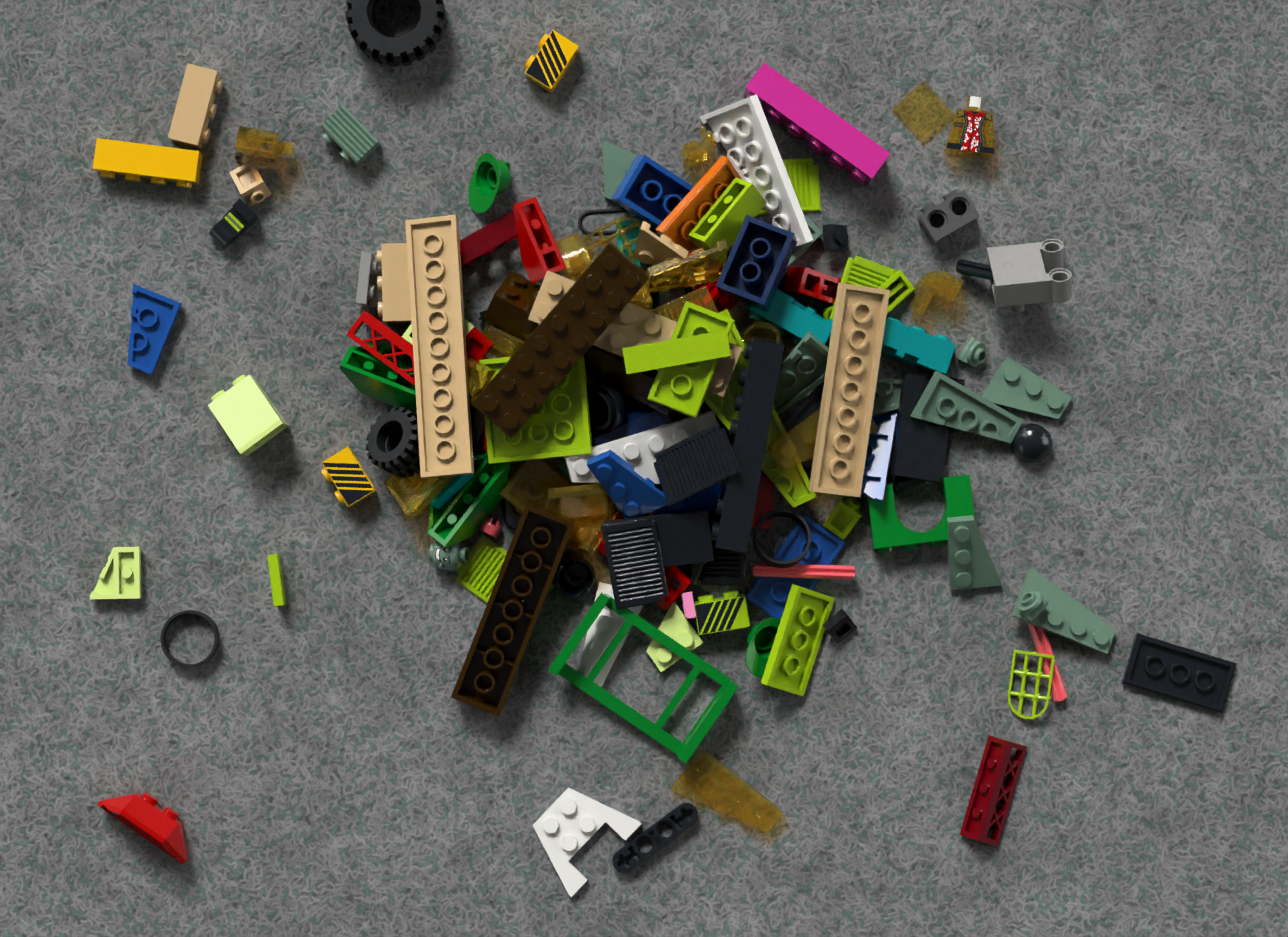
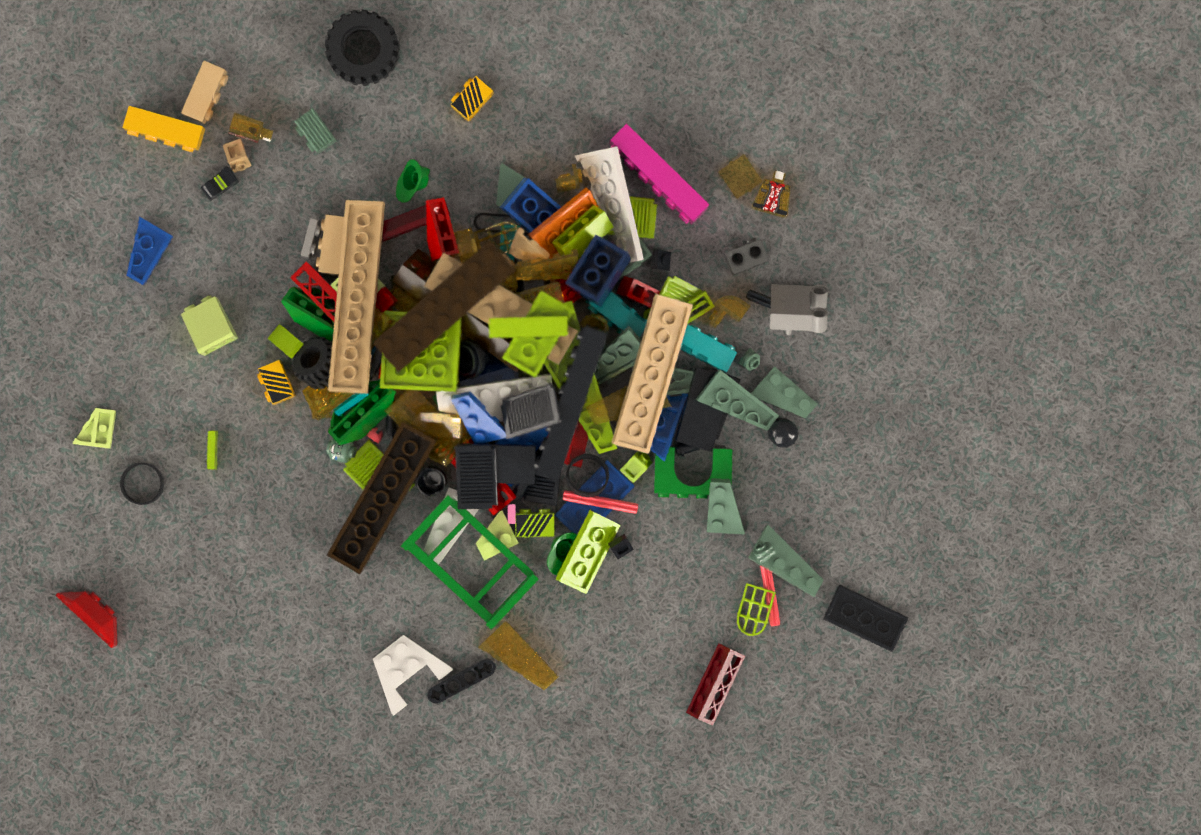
camera: 10 degrees right, 0 degrees up
(352, 420) = (285, 341): none -> lime tile

